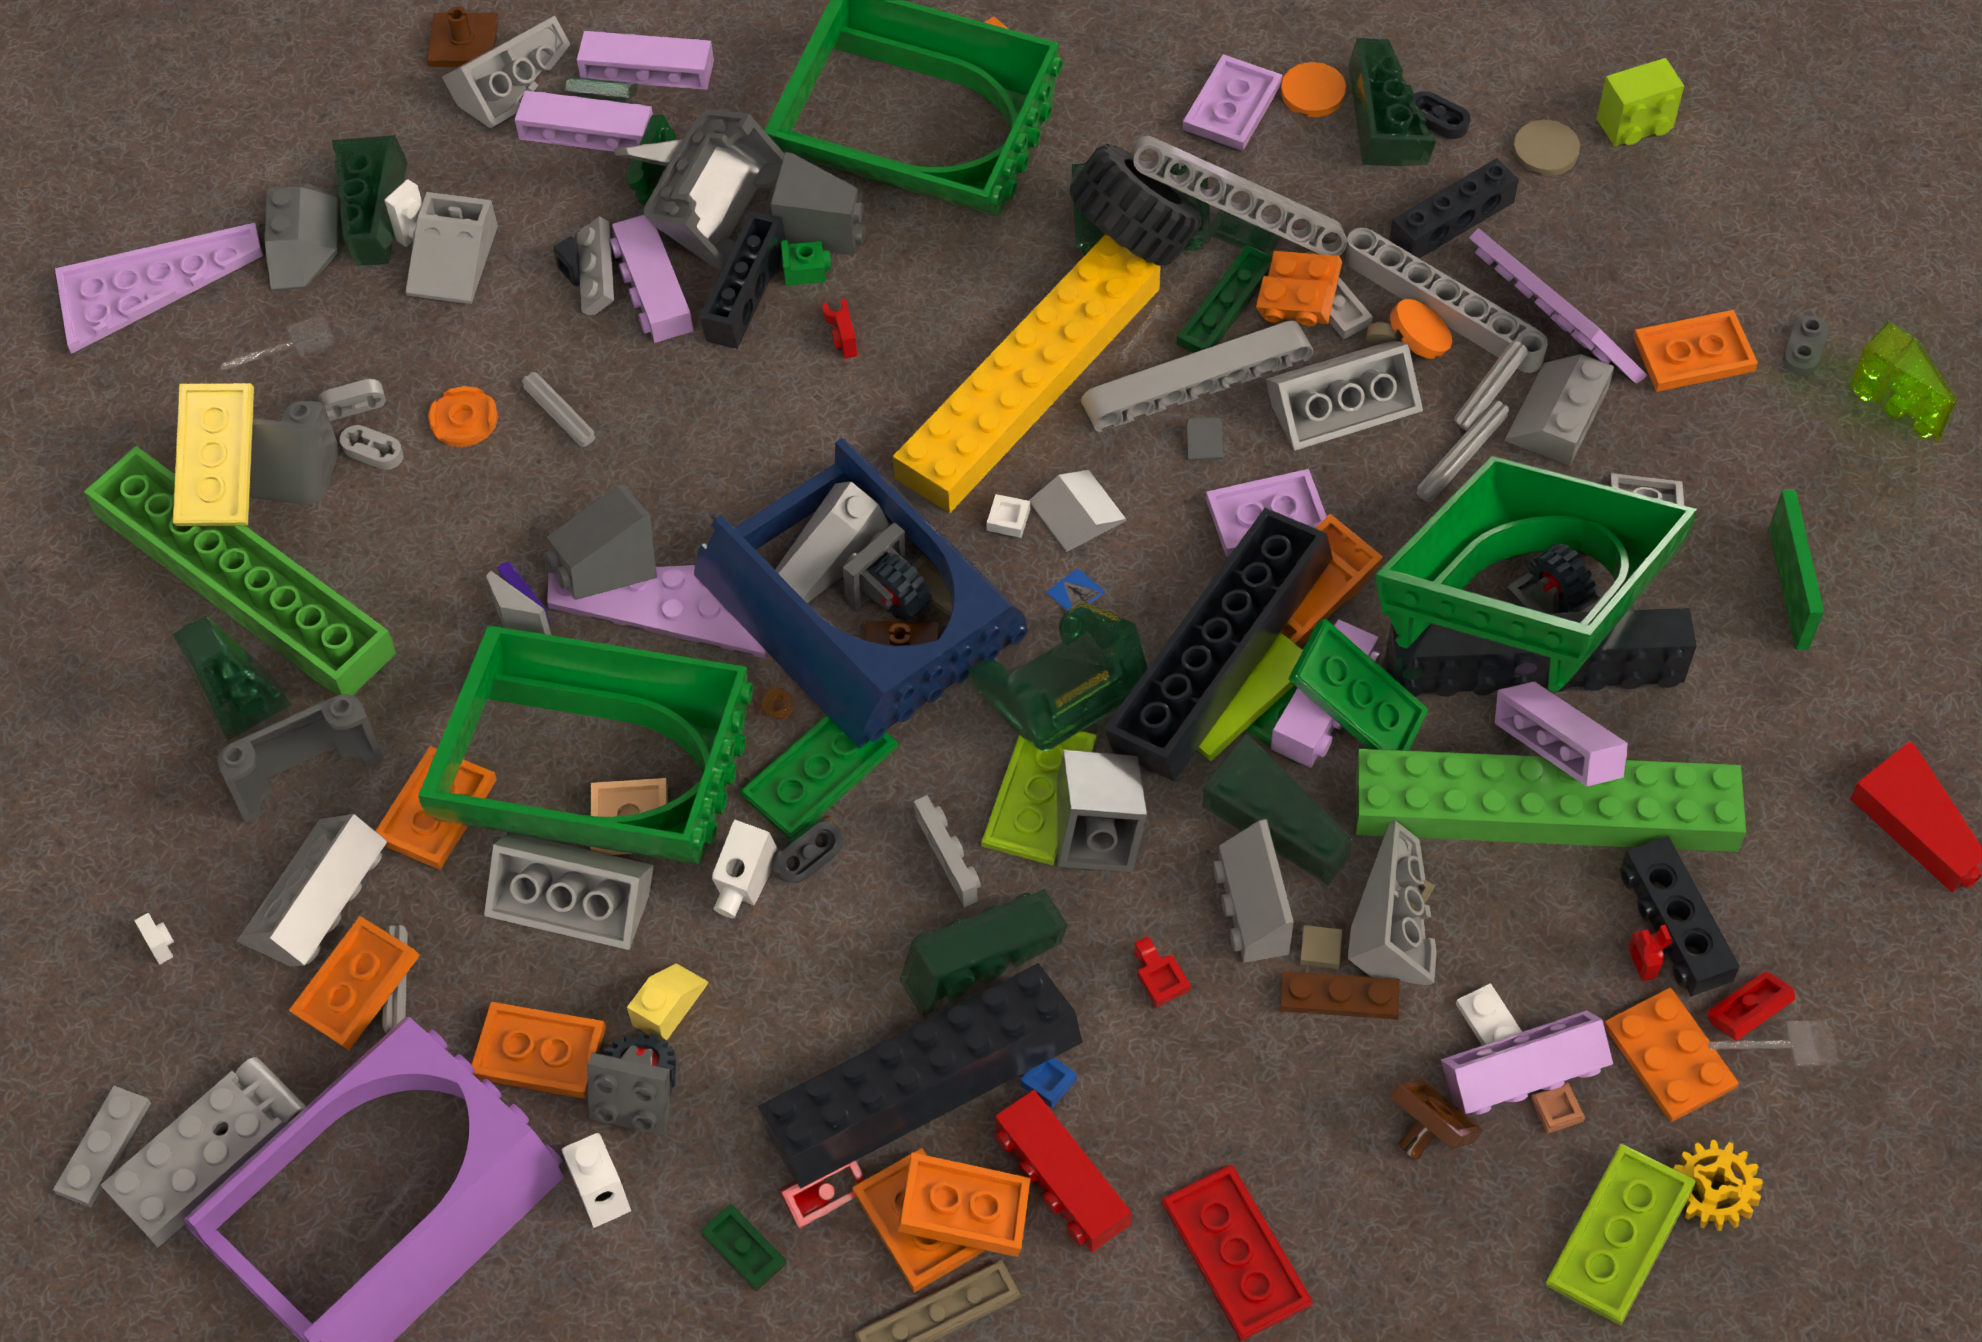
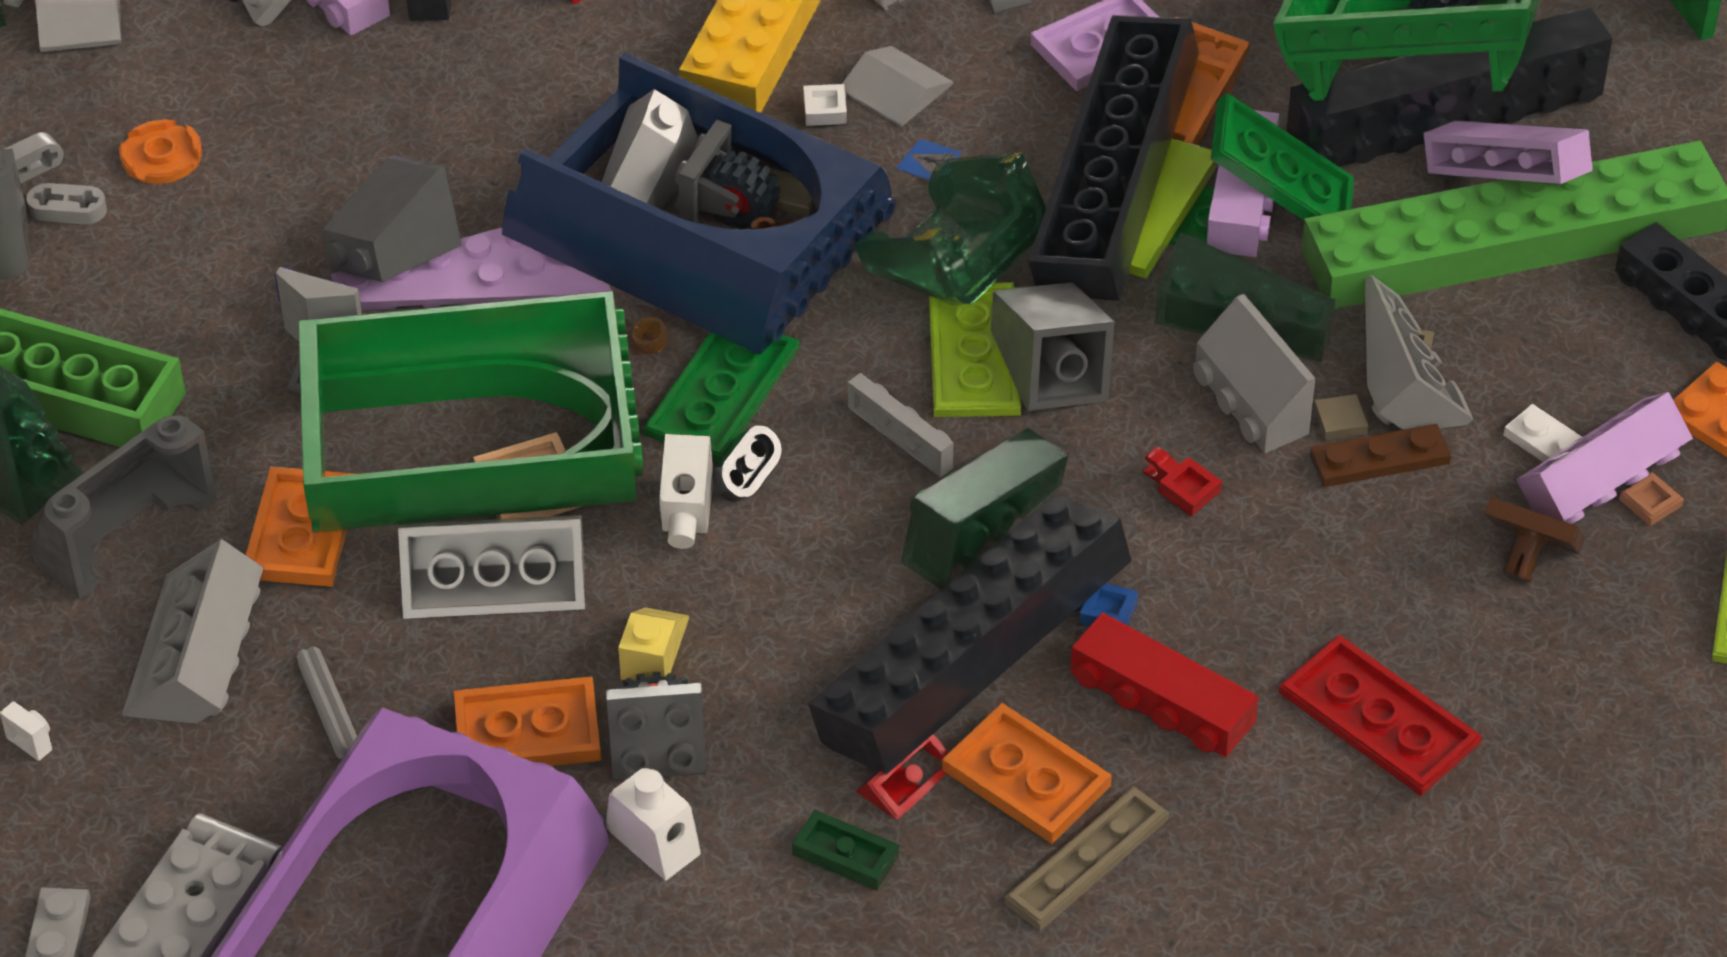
camera: 20 degrees left, 10 degrees down
(354, 983) = (287, 711): orange plate -> none
(558, 409) = (270, 120): light grey axle -> none
(964, 1204) = (1076, 736): orange plate -> none
(1647, 951) = (1677, 330): red plate -> none

